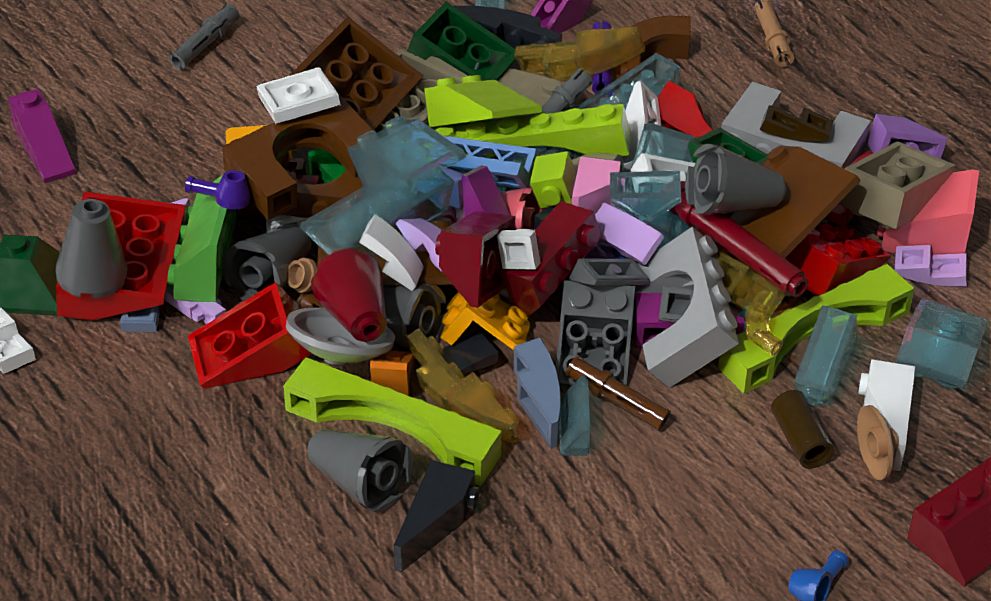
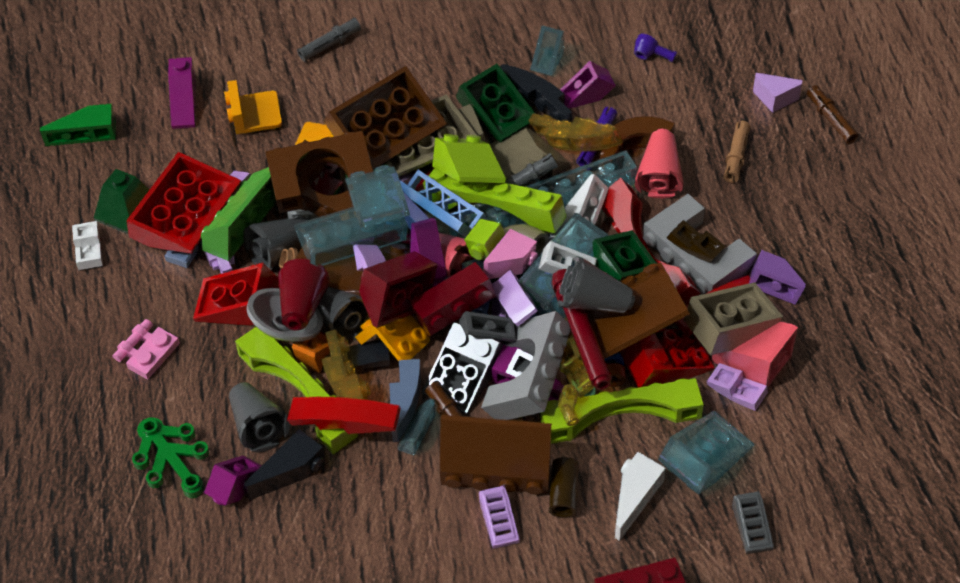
camera: 25 degrees right, 10 degrees up
(91, 252) = (152, 207): dark grey cone -> none
(147, 134) = (252, 111): none -> light orange bracket
(165, 441) = (152, 352): none -> bright pink plate
(221, 529) = (169, 452): none -> green plant
(230, 193) = (259, 186): dark purple bar -> none
(298, 95) = (333, 125): white plate -> none
(369, 552) = (228, 478): none -> magenta slope
(401, 259) = (339, 268): white slope -> none
(479, 420) = (345, 413): none -> red slope
(518, 249) = (423, 292): white tile -> none
(645, 193) = (534, 273): clear light blue slope -> none
(705, 63) = (660, 167): none -> coral cone
(706, 408) = (495, 454): none -> reddish brown slope
(727, 468) = (494, 500): none -> lavender slope
(827, 355) = (610, 439): clear light blue slope -> none
(876, 442) = (607, 517): medium nougat dish -> none

